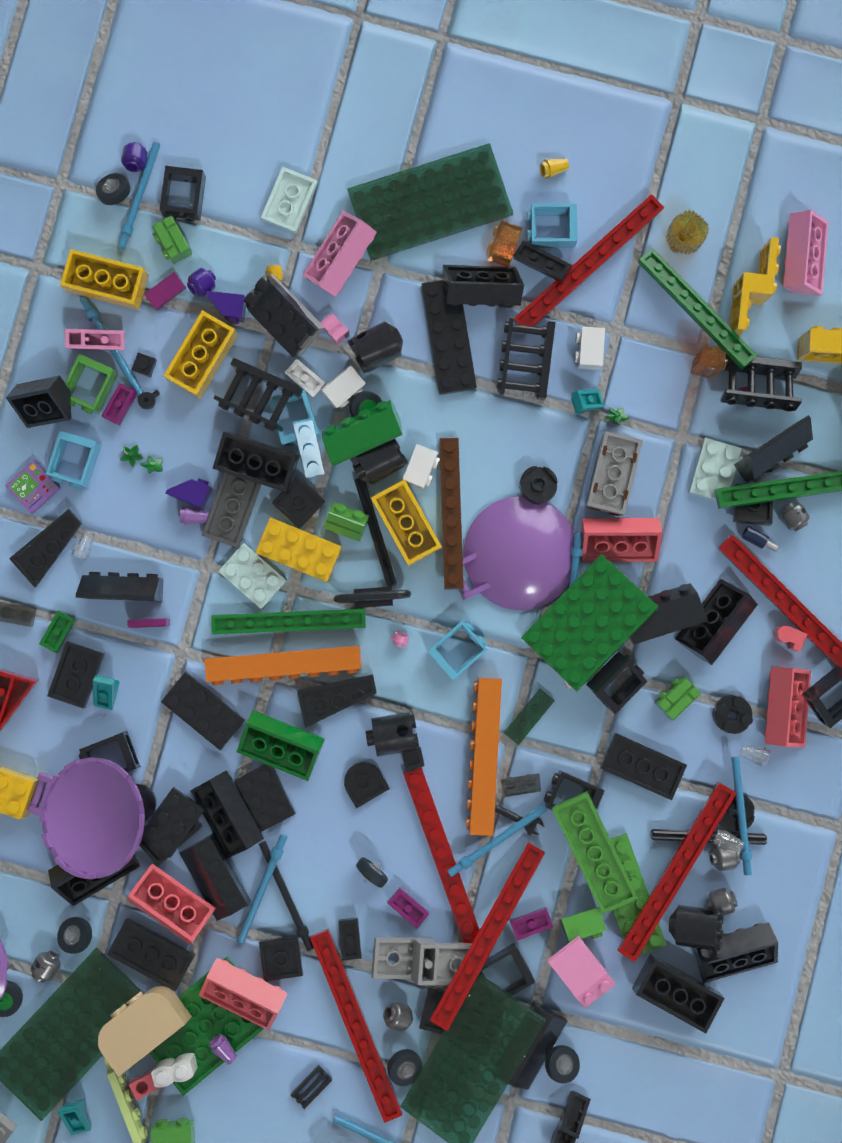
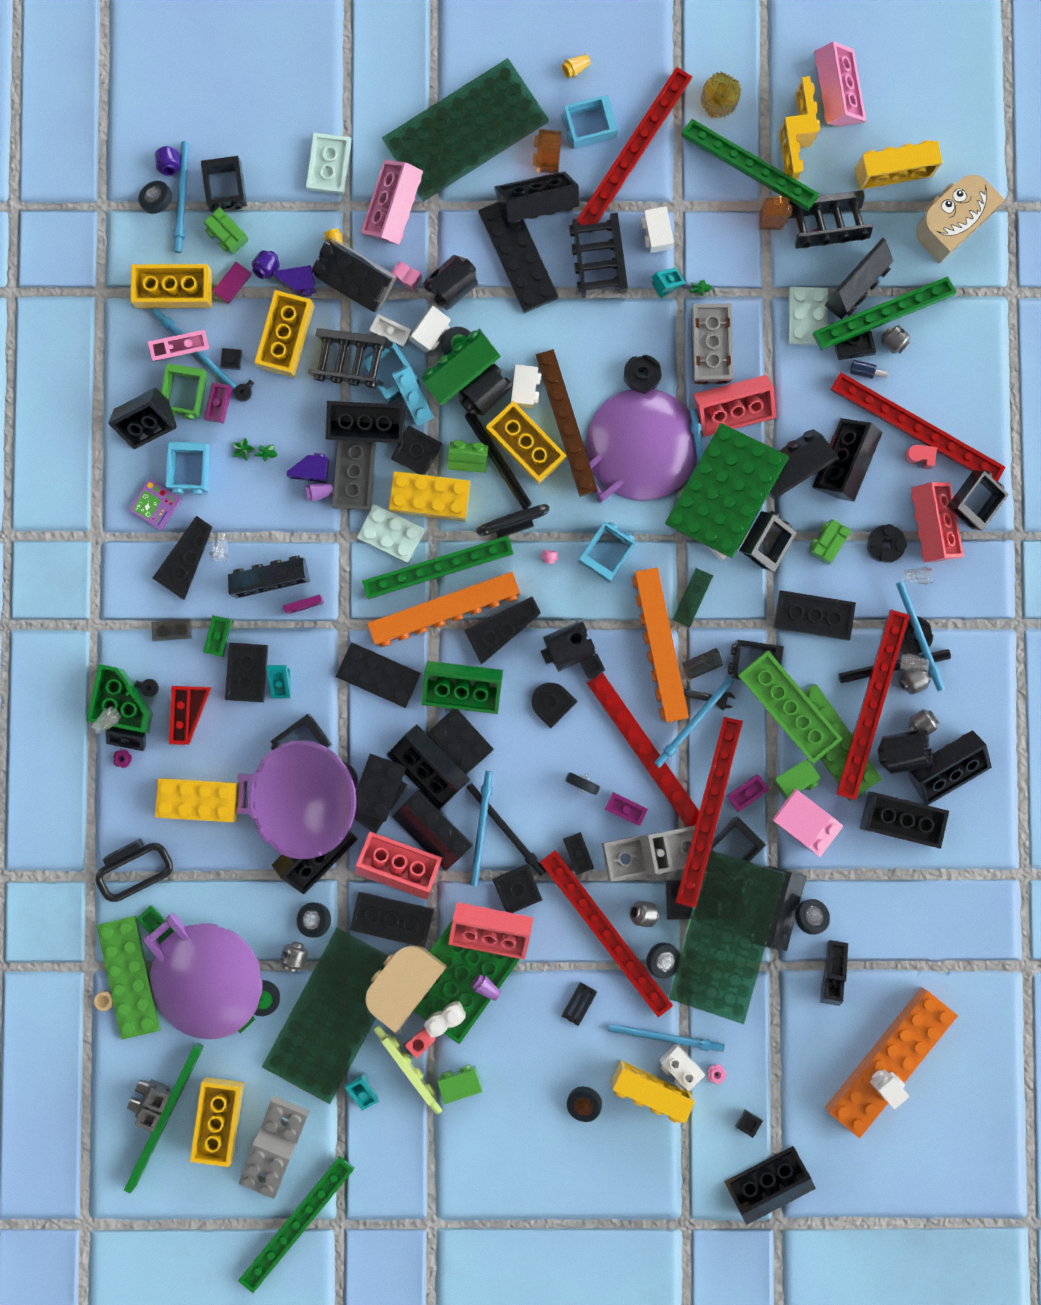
camera: 15 degrees left, 0 degrees up
(542, 261) = (589, 158): black plate -> none

